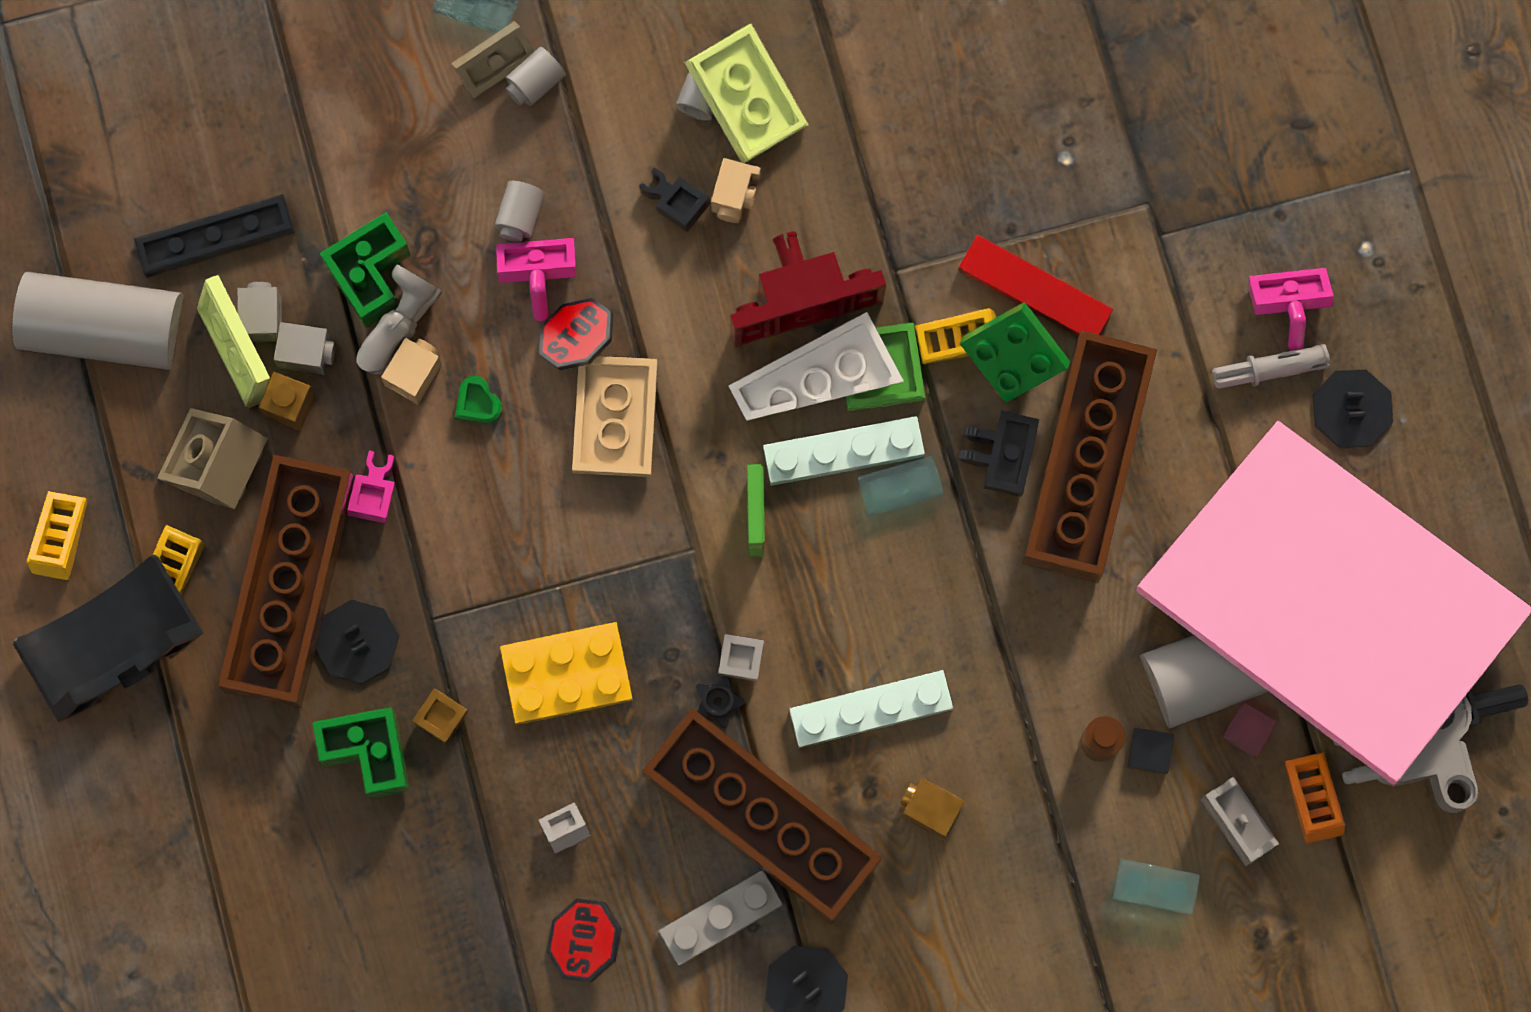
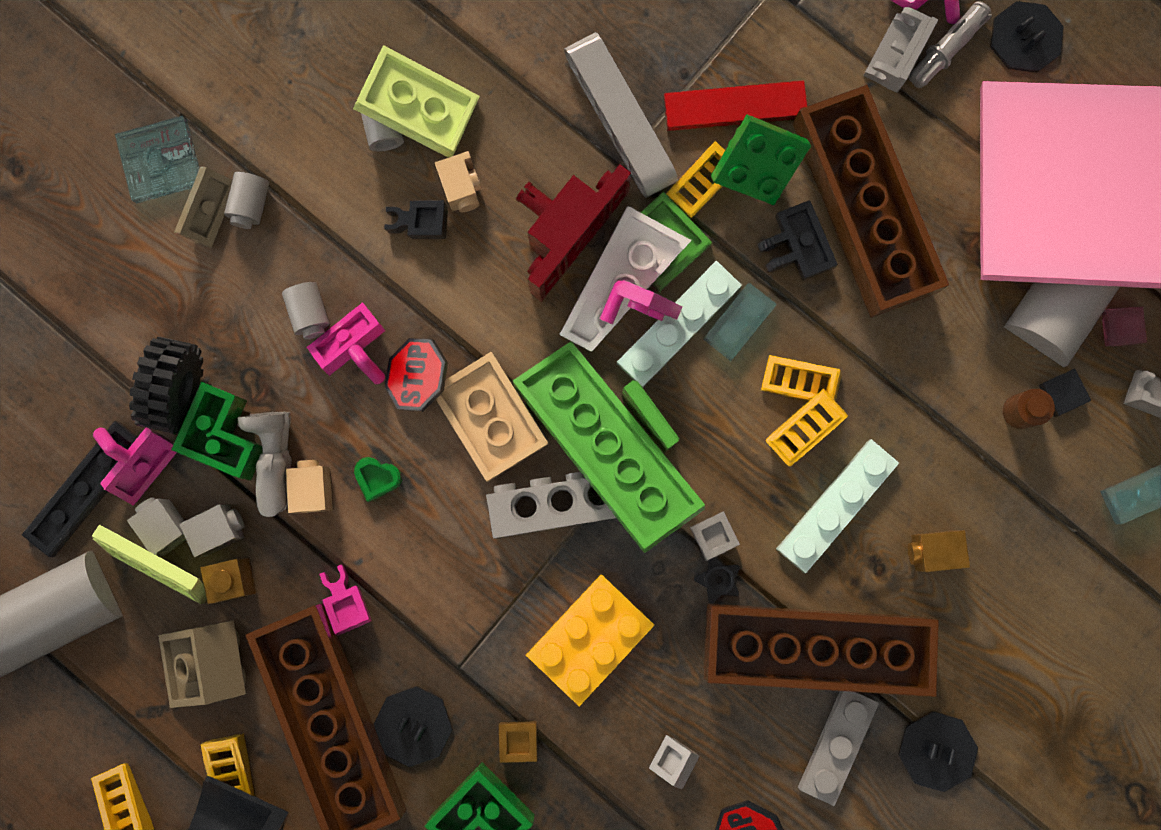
camera: 30 degrees left, 5 degrees up
(277, 246) = (135, 466): none -> dark pink plate
(353, 194) = (165, 384): none -> black tyre
(676, 571) = (507, 522): none -> light grey brick
(700, 508) = (609, 446): none -> bright green plate
(818, 404) = (640, 300): none -> dark pink plate
(857, 622) = (784, 450): none -> yellow slope
(923, 227) = (620, 114): none -> light grey beam
(937, 604) = (804, 368): none -> yellow slope
(1222, 341) = (900, 48): none -> light grey hinge

